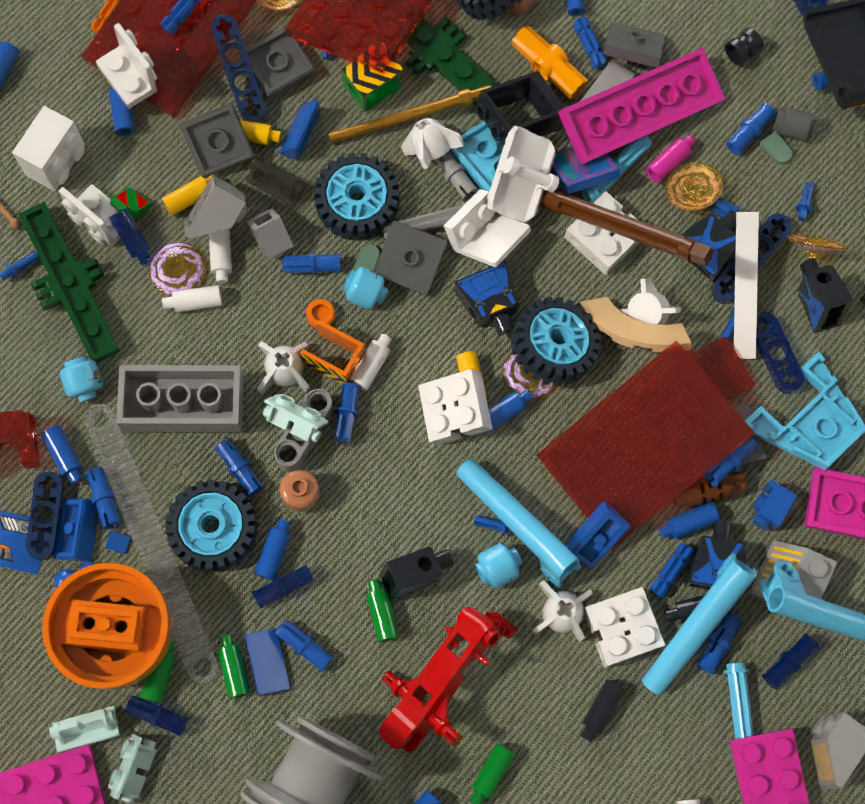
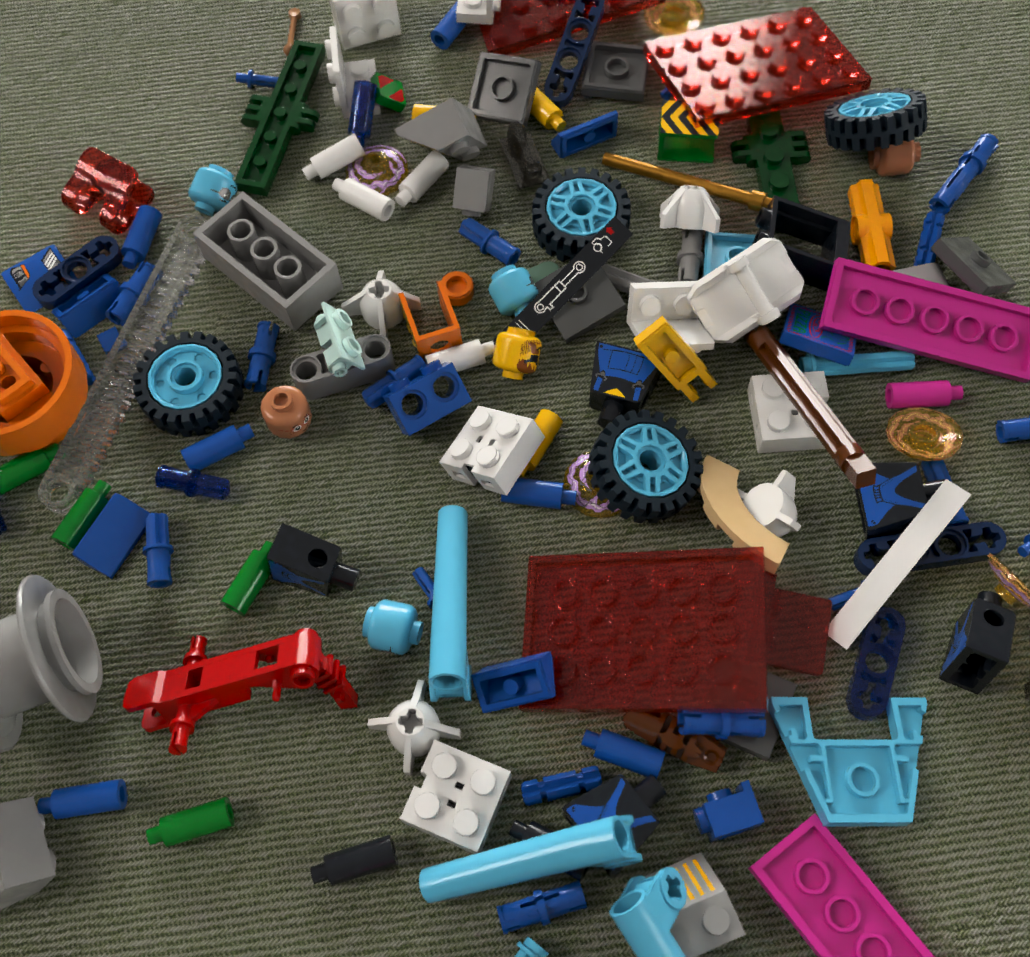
camera: 50 degrees right, 10 degrees down
(144, 285) = (334, 158): none -> white cylinder
(387, 409) = (430, 406): none -> blue brick
(399, 262) = (572, 277): none -> black sticker
(408, 329) = (517, 352): none -> yellow head
(516, 257) = (673, 357): none -> yellow hinge

